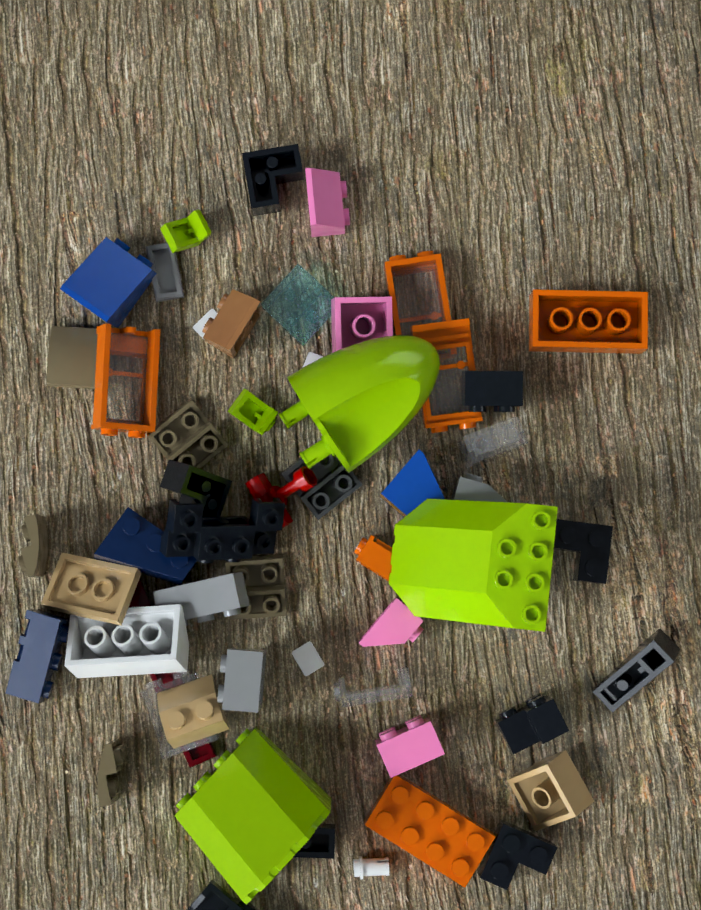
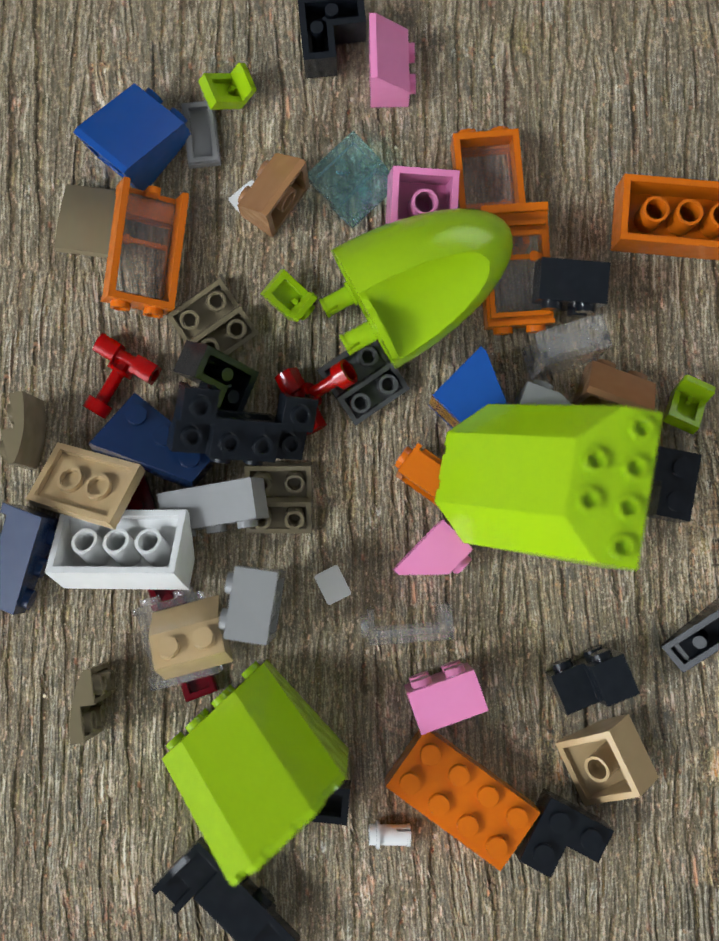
camera: 10 degrees right, 0 degrees up
(113, 482) = (122, 365): none -> red bar
(539, 476) = (612, 387): none -> medium nougat slope
(602, 482) = (688, 403): none -> lime bracket

